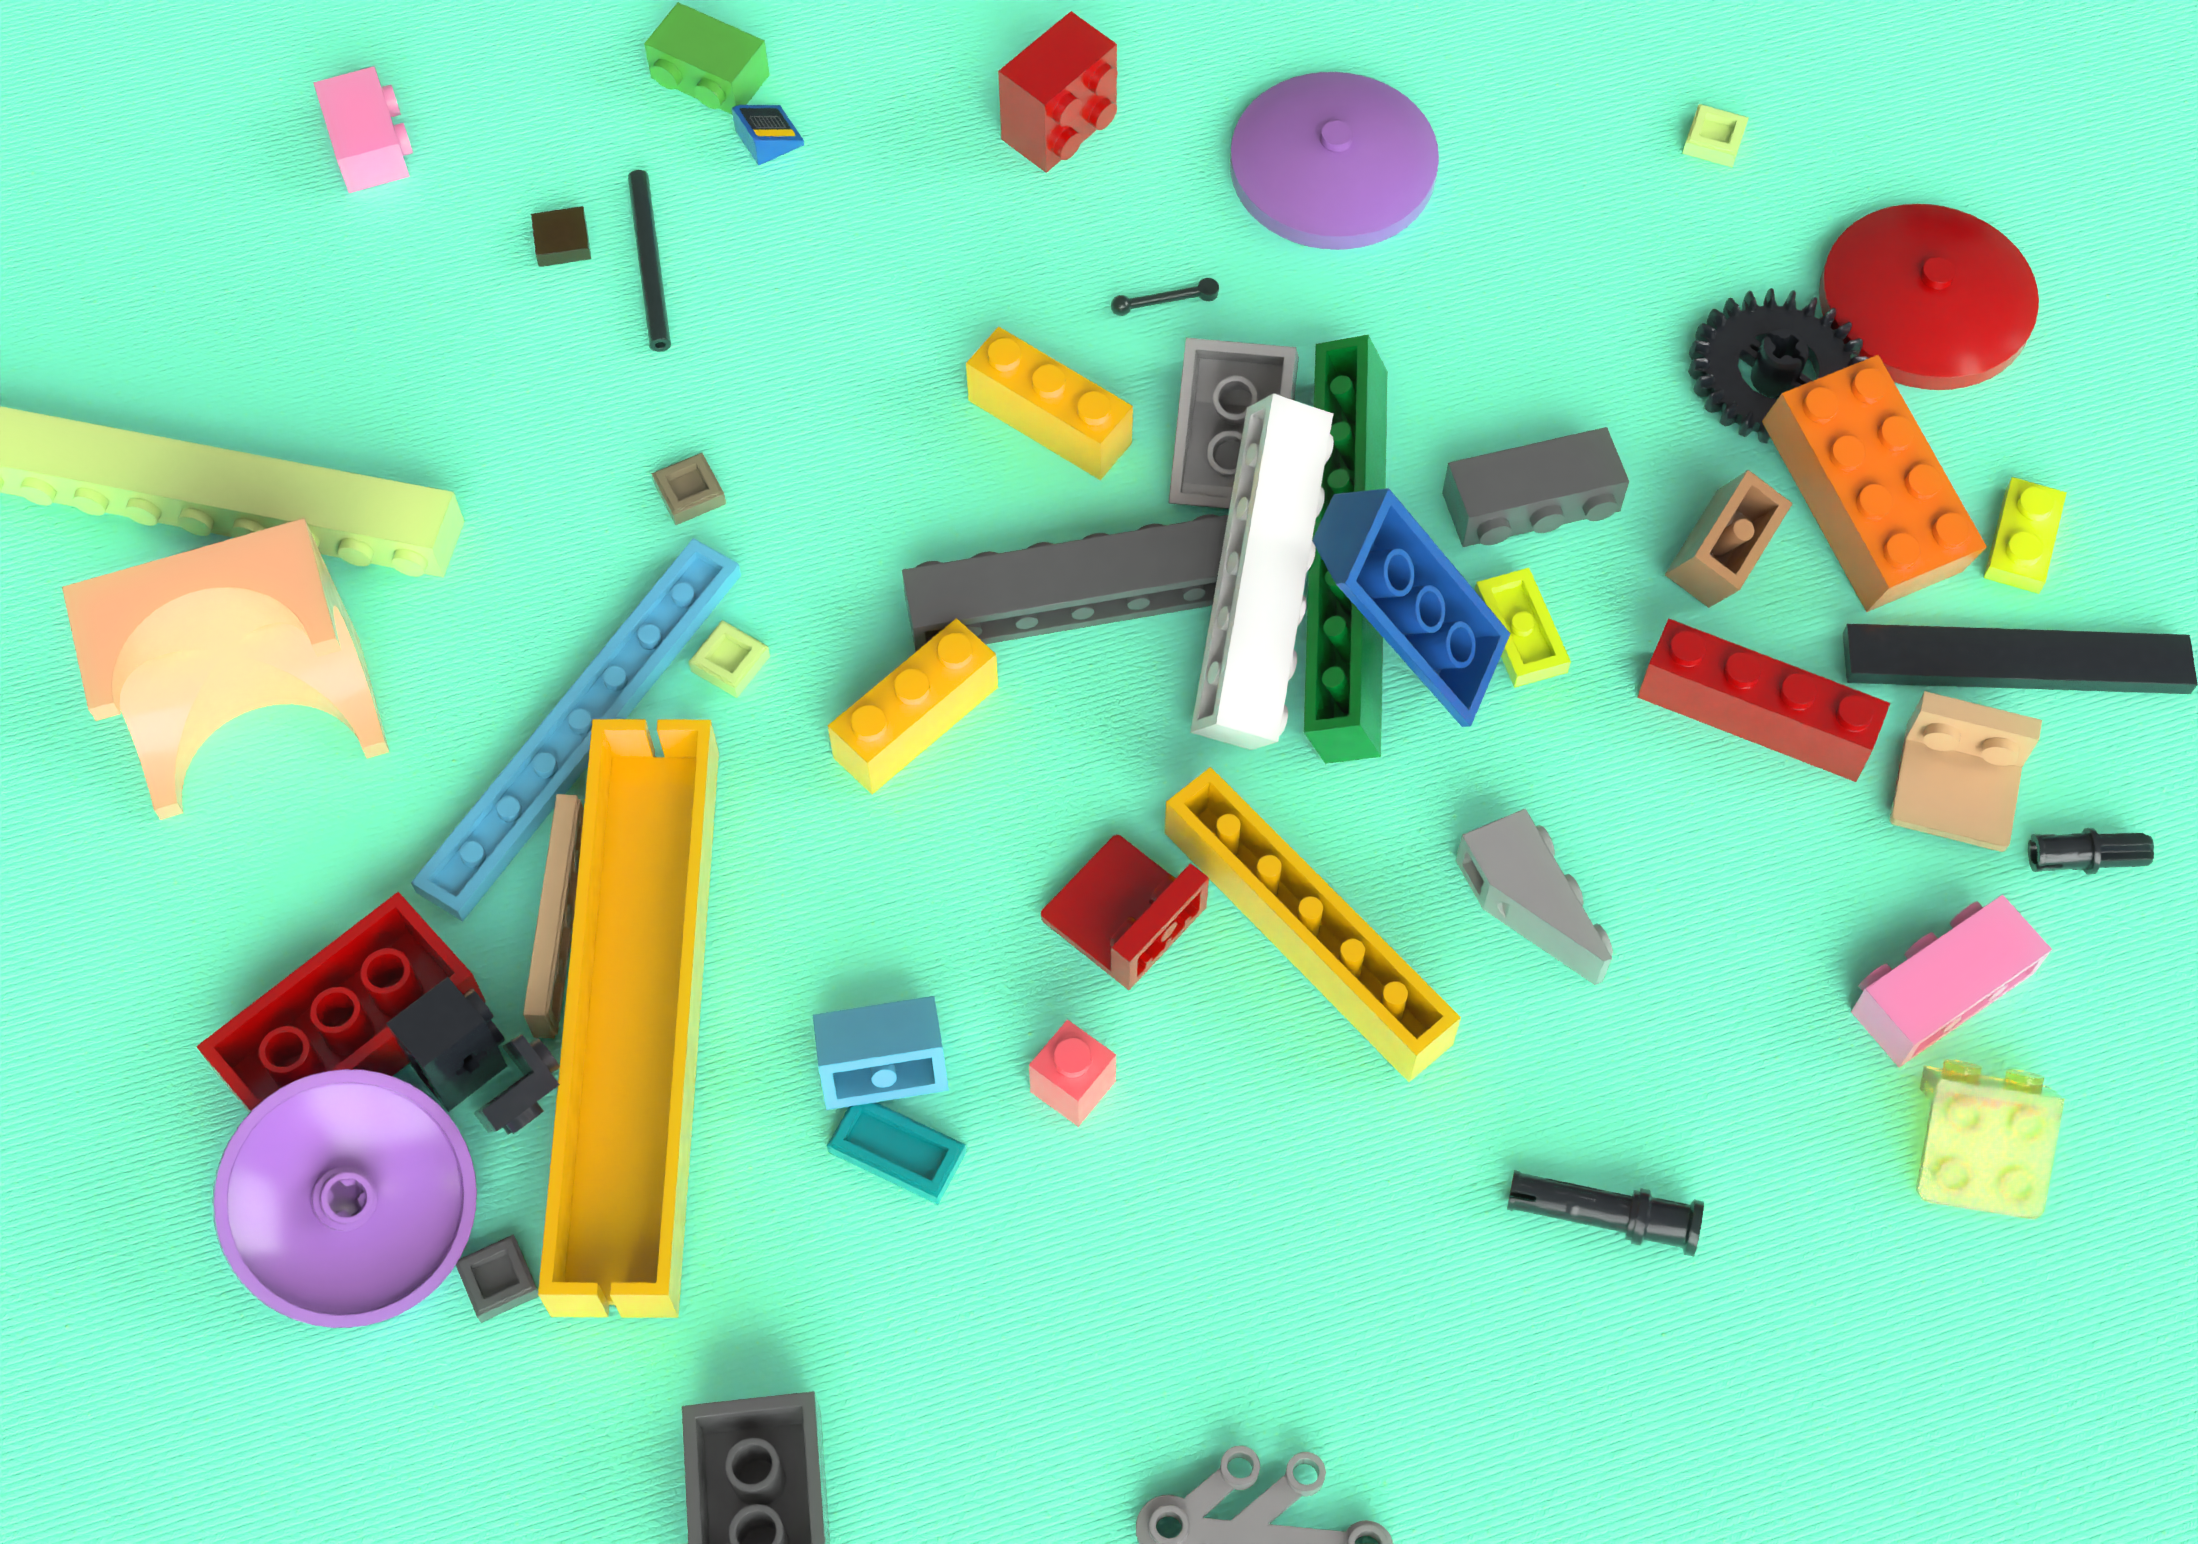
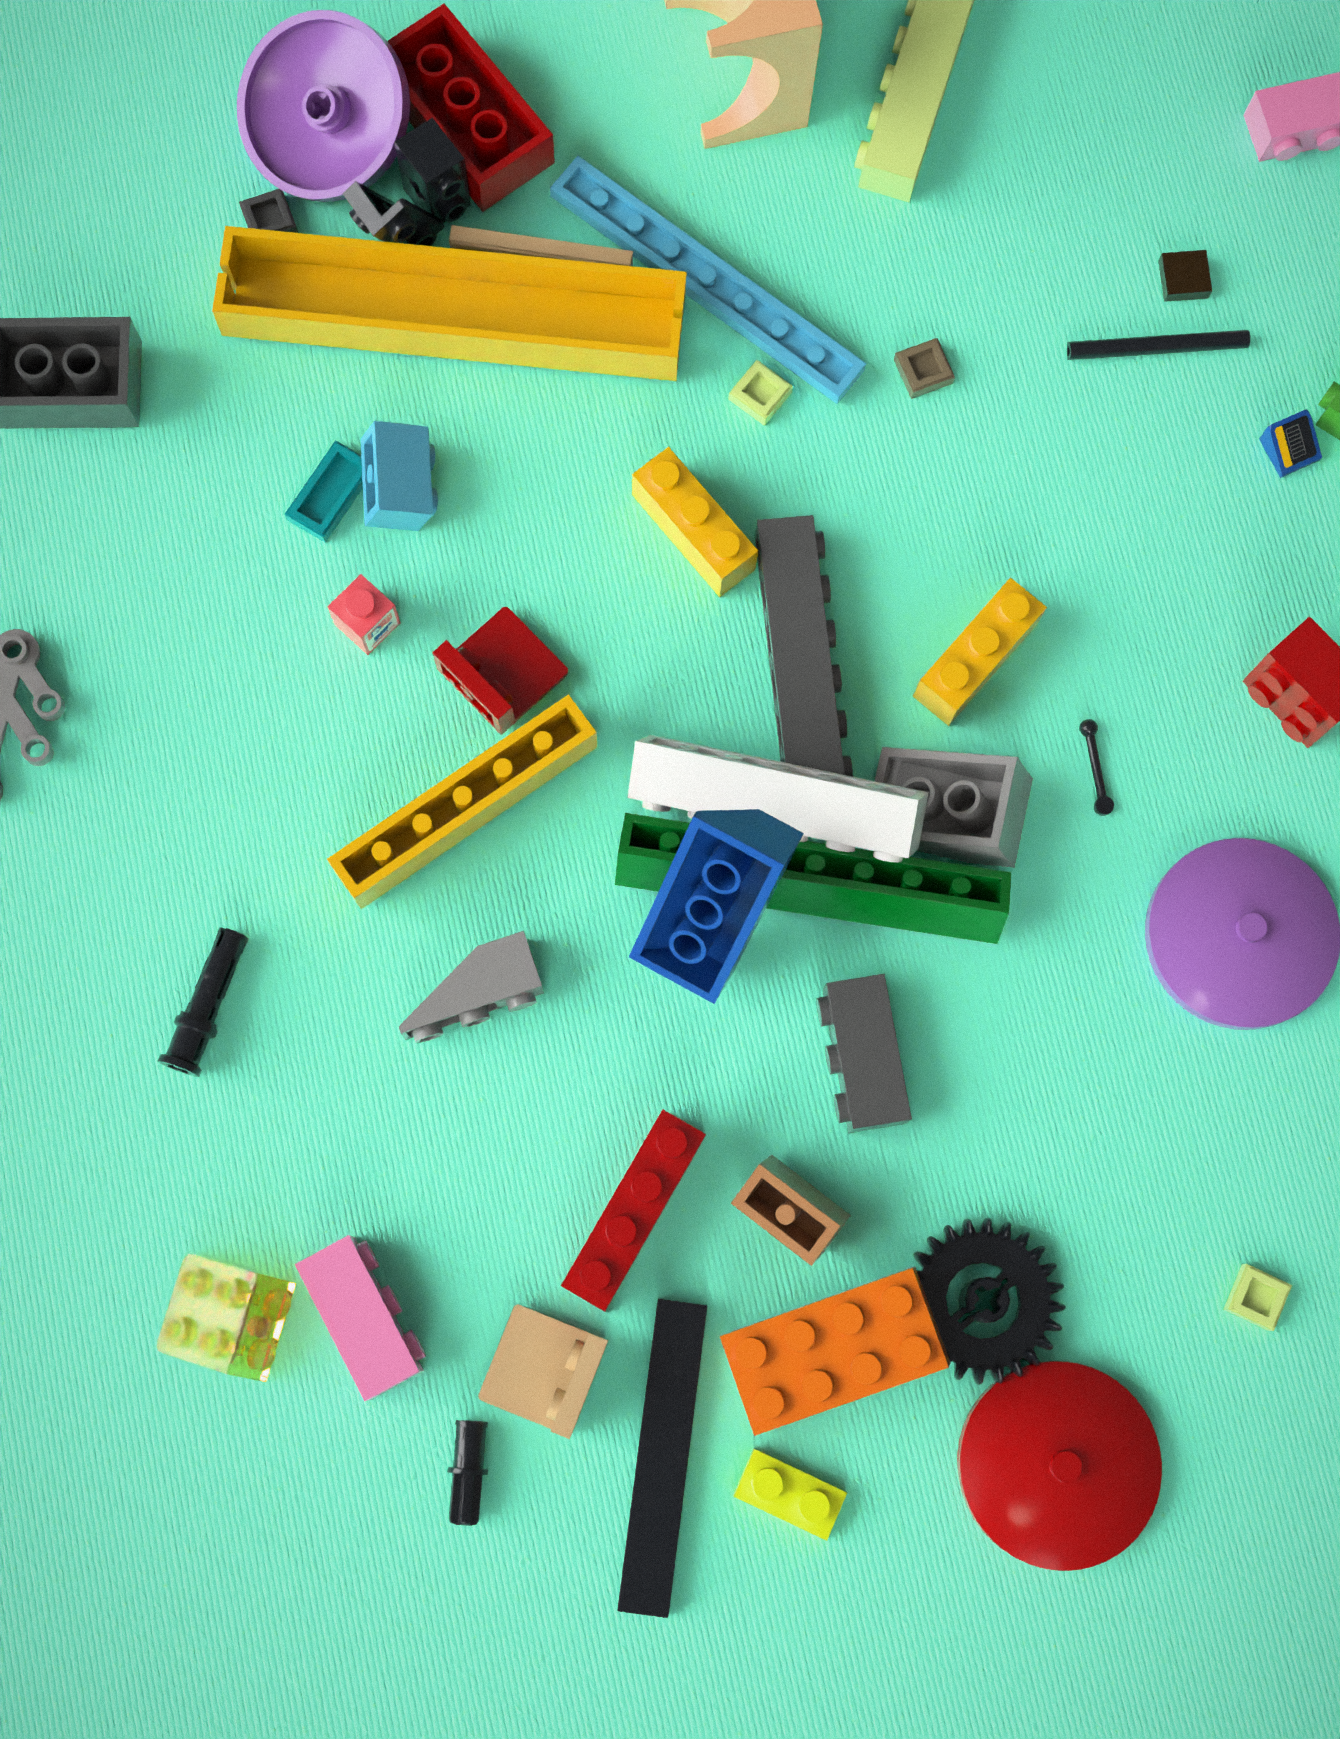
camera: 90 degrees right, 15 degrees up
(1534, 643) = (729, 1021): neon yellow plate -> none

